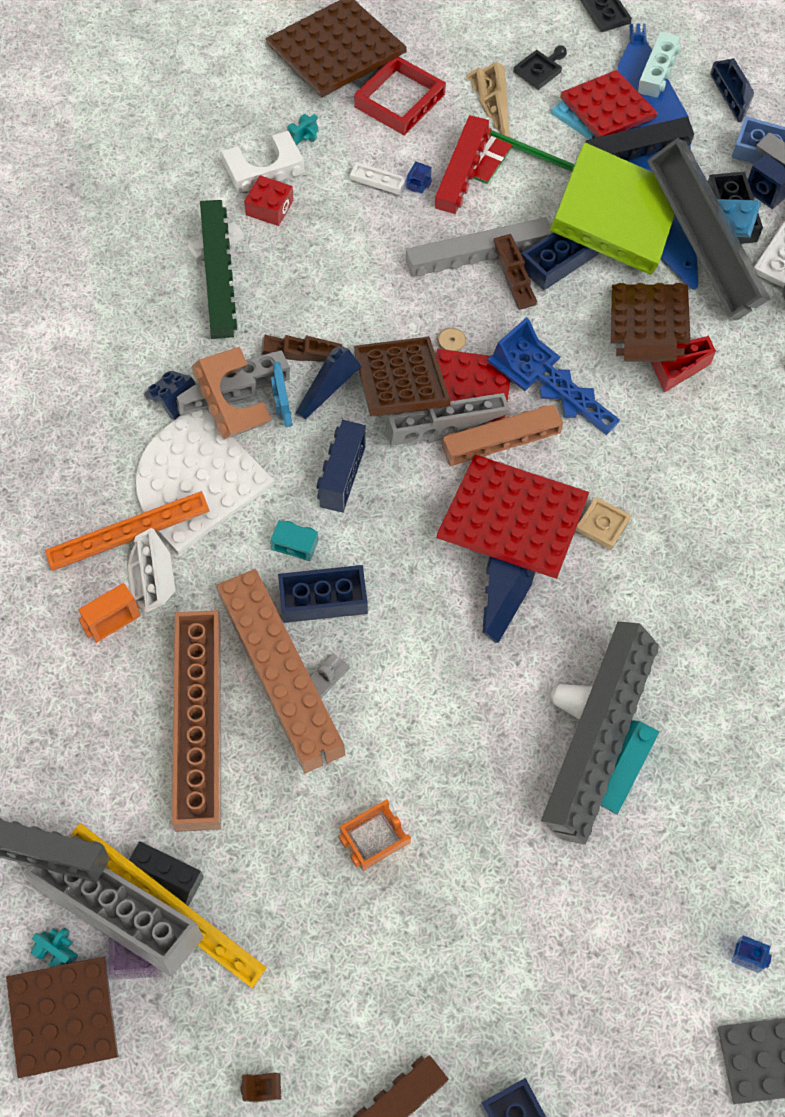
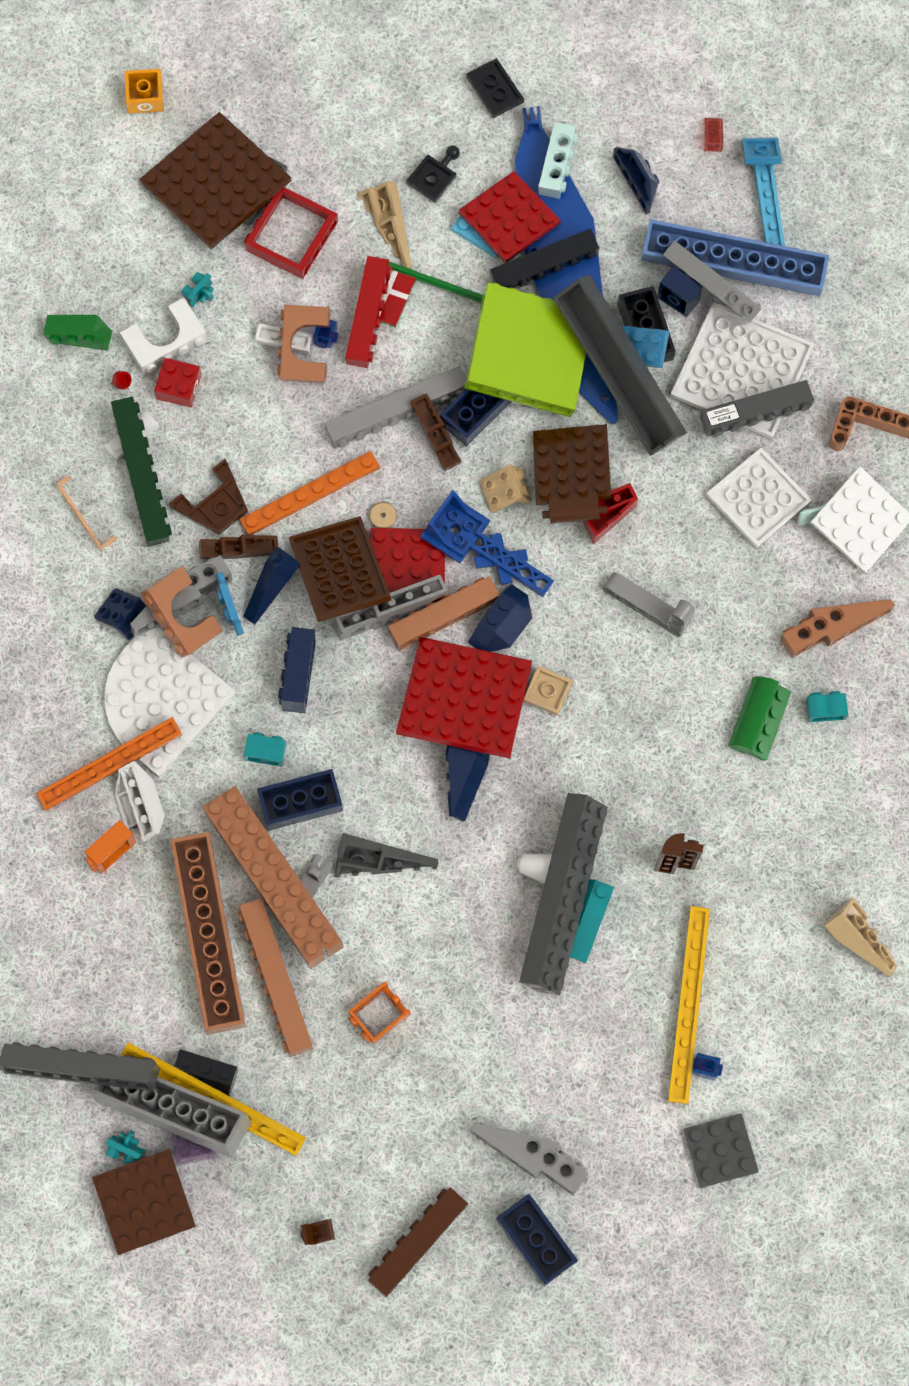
camera: 10 degrees left, 10 degrees up
(172, 328) = (78, 514): none -> light nougat piece
(183, 147) = (78, 331): none -> green wedge
(215, 192) = (121, 380): none -> red tile
(264, 780) = (276, 977): none -> nougat brick
(287, 313) = (218, 509): none -> reddish brown wing
(381, 311) = (309, 493): none -> orange plate
(385, 663) = (364, 855): none -> dark grey wedge
(391, 157) = (294, 319): none -> nougat arch
(512, 1018) = (514, 1148): none -> light grey brick
(561, 450) = (503, 621): none -> dark blue wedge
(579, 329) = (505, 488): none -> tan bracket
(733, 883) = (689, 1005): none -> yellow plate
(738, 703) = (678, 854): none -> reddish brown brick
(739, 470) = (669, 618): none -> light grey beam

